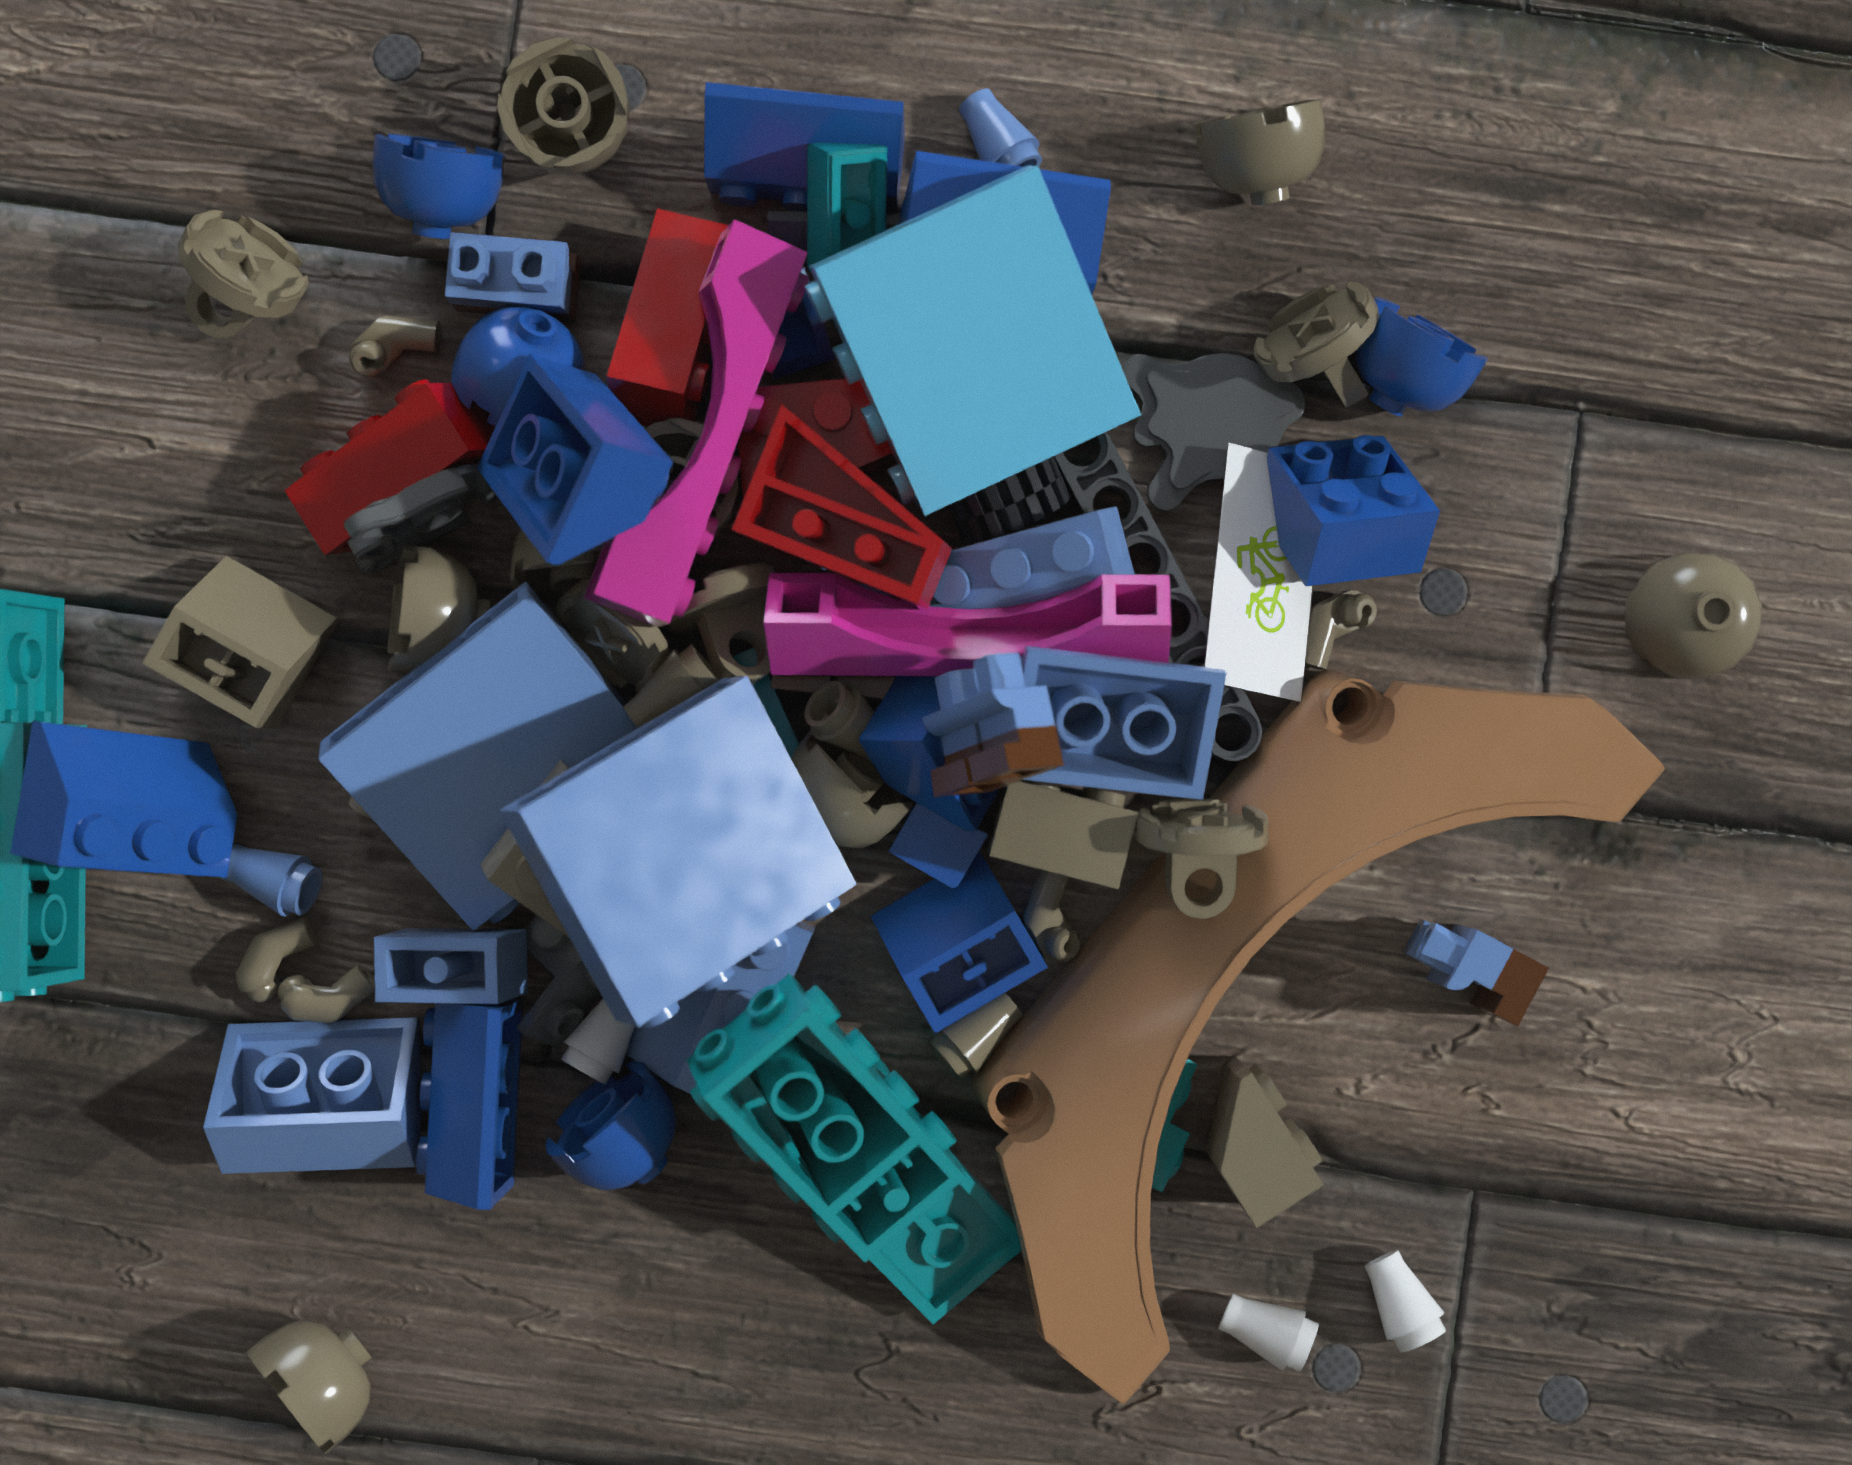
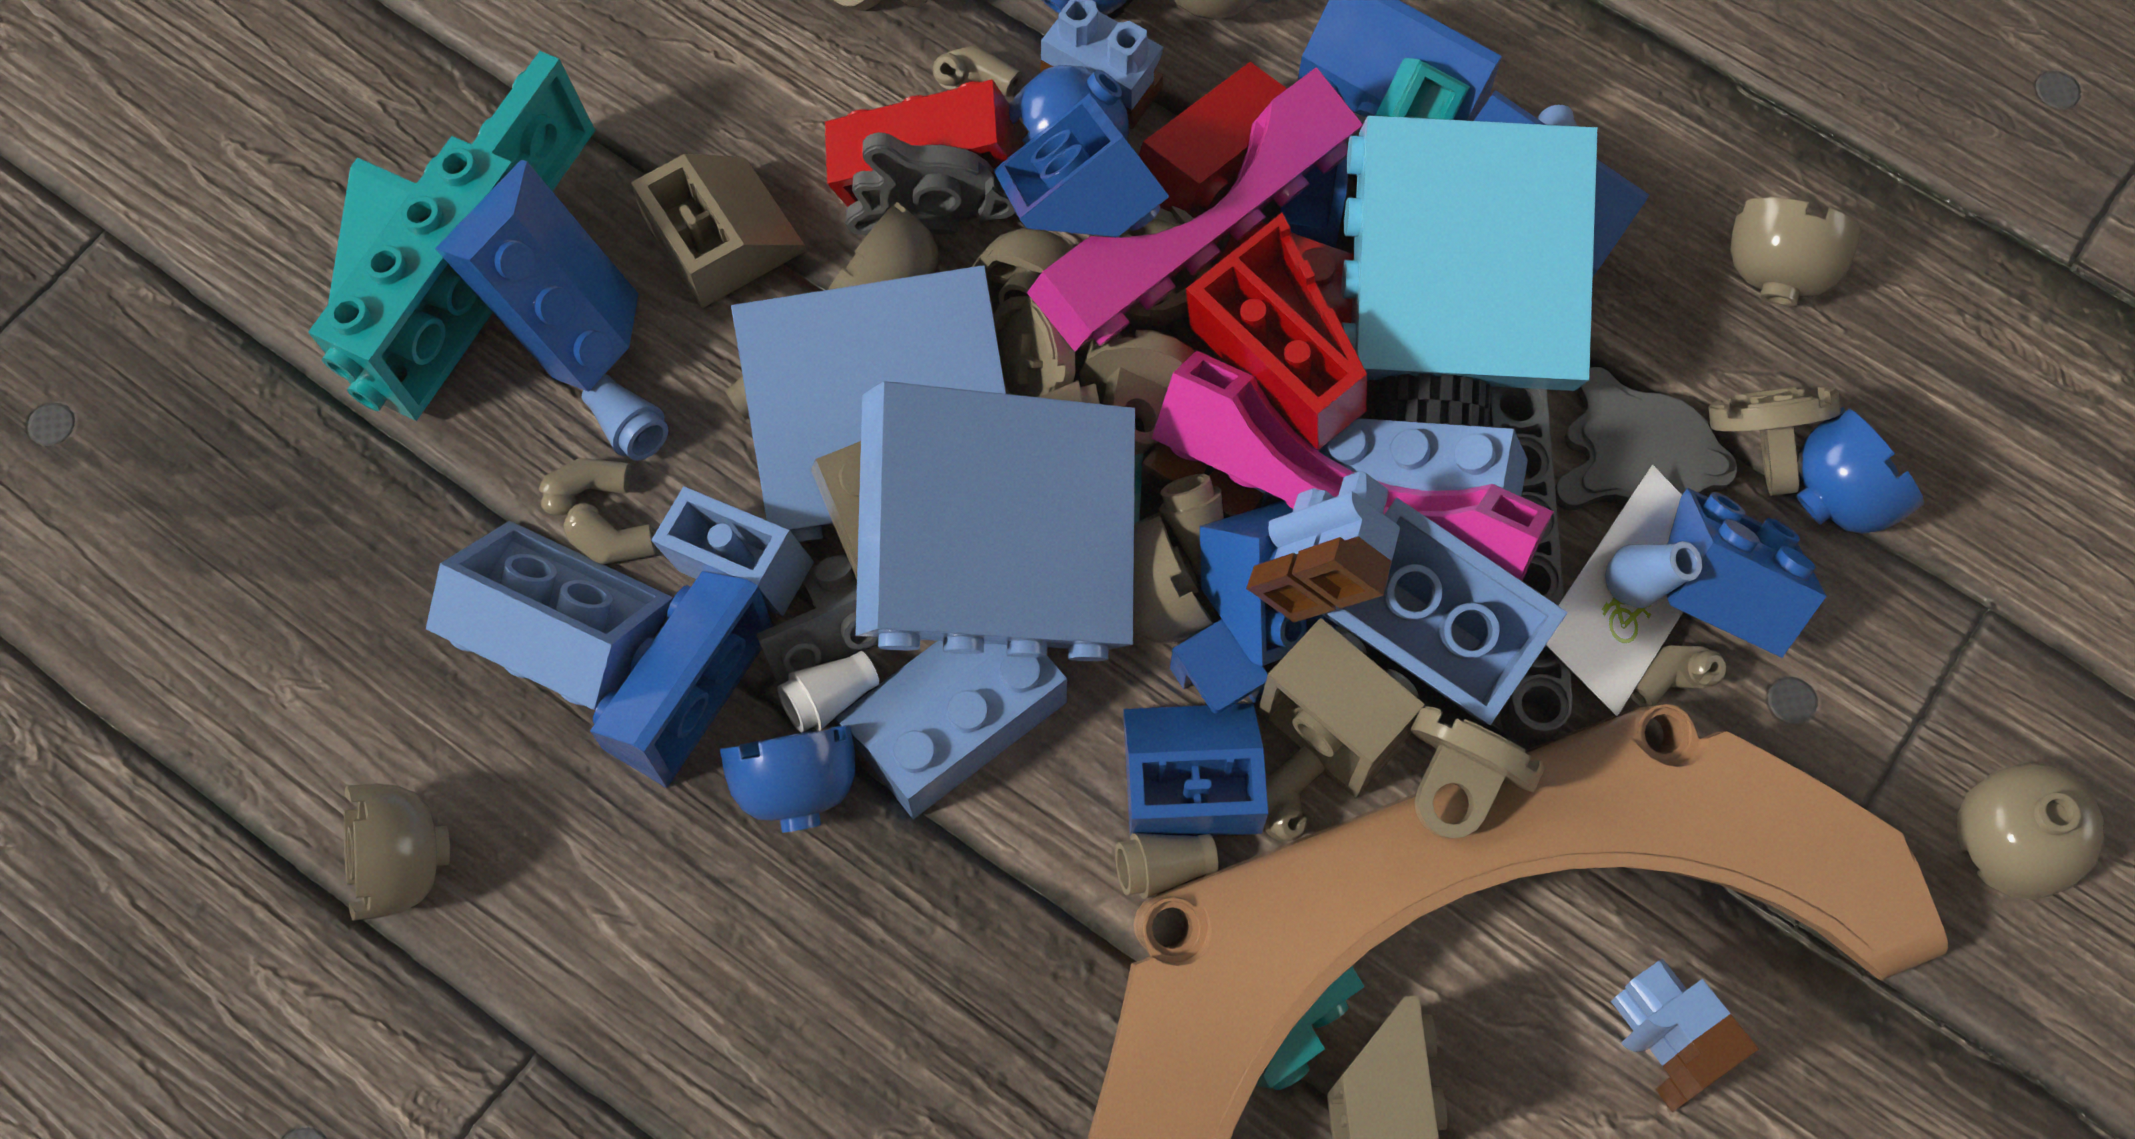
camera: 30 degrees right, 20 degrees down
(852, 1145) = (1005, 883): teal wedge -> none
(1273, 565) = (1648, 572): none -> medium blue cone

